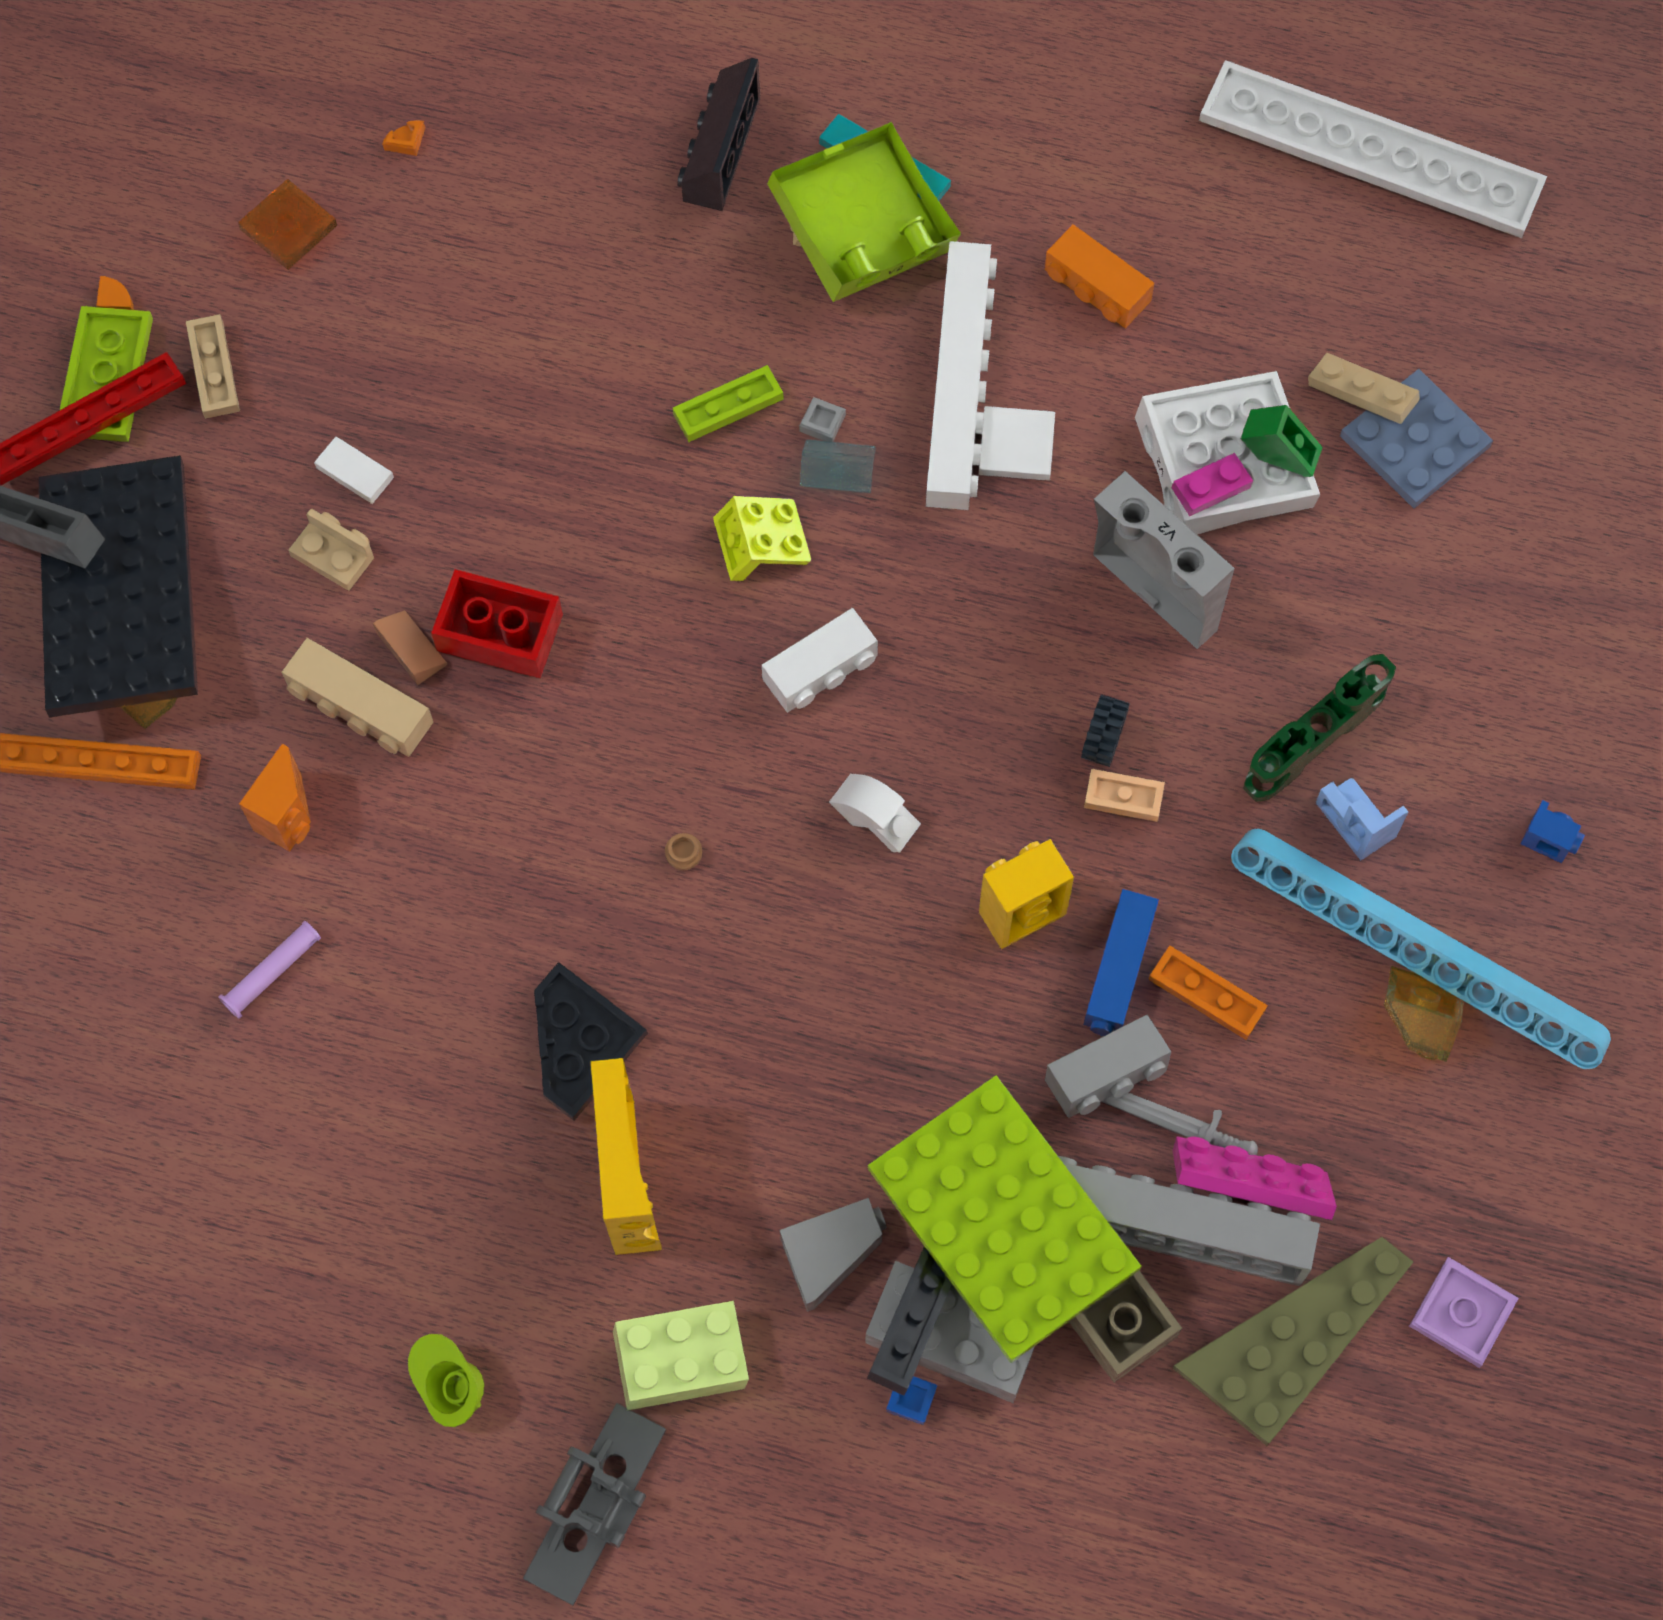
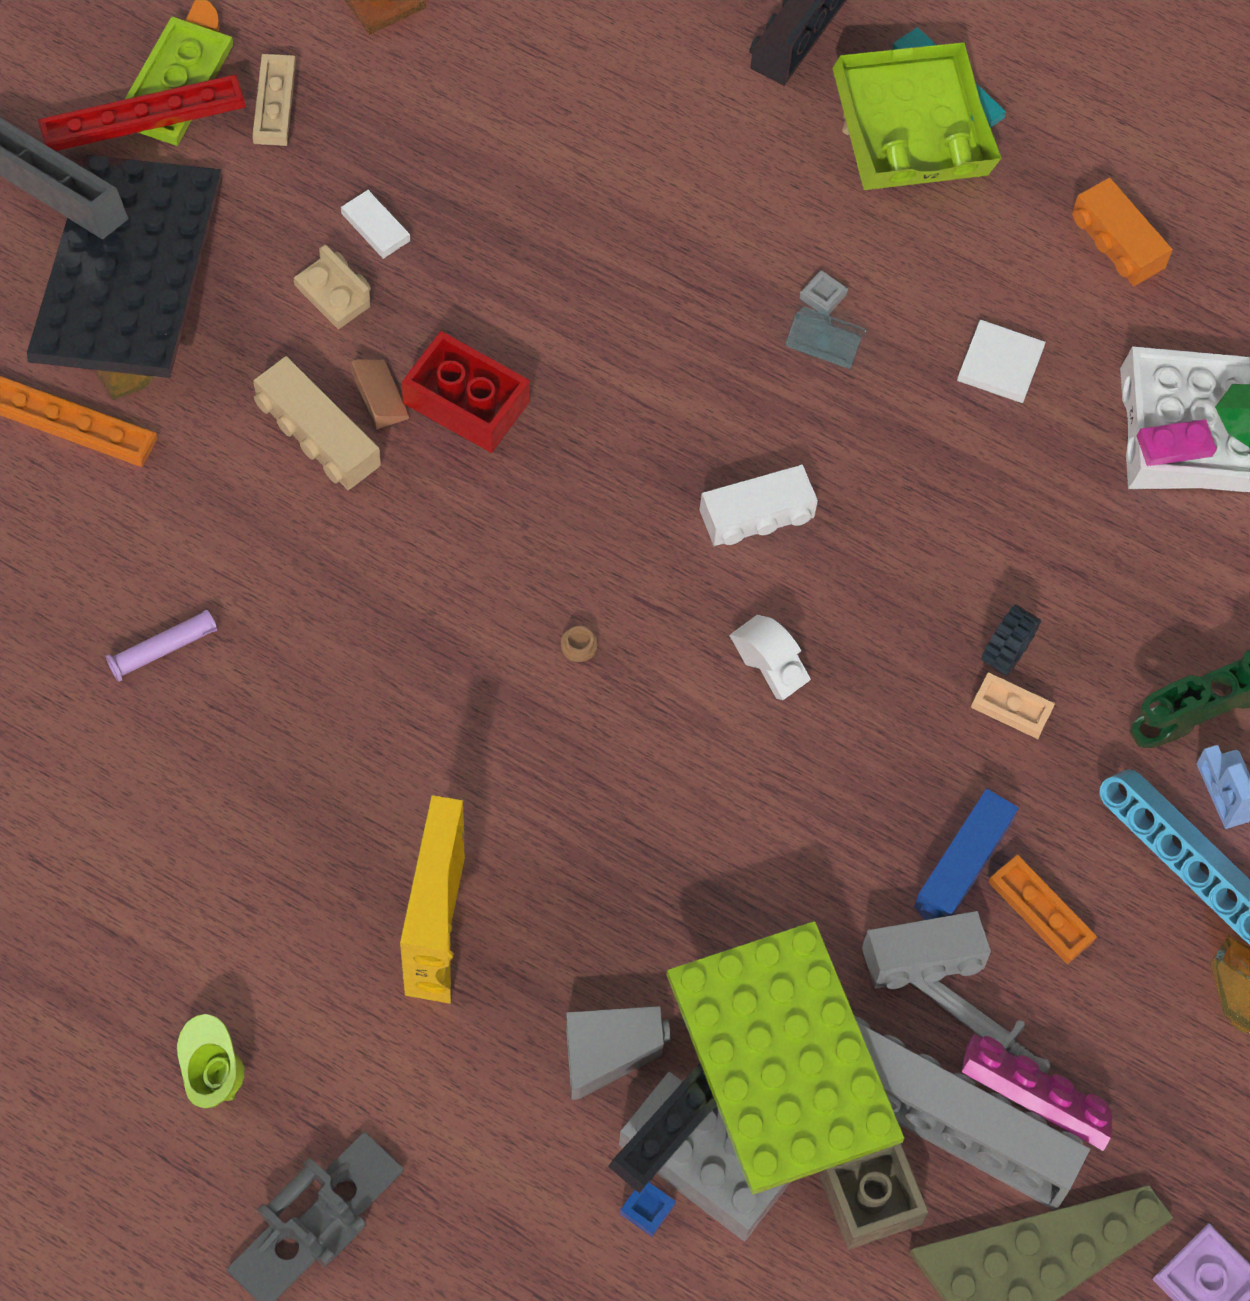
camera: 10 degrees right, 5 degrees down
(278, 802) = (214, 495): orange slope -> none
(573, 1030) = (424, 766): black plate -> none
(680, 1355) = (438, 1103): yellowish green brick -> none
(728, 403) = (739, 254): lime plate -> none
(760, 532) = (735, 375): neon yellow bracket -> none
(958, 376) = (963, 287): white brick -> none
(1025, 892) = (891, 765): yellow brick -> none
(1161, 559) = (1108, 494): light grey piece -> none

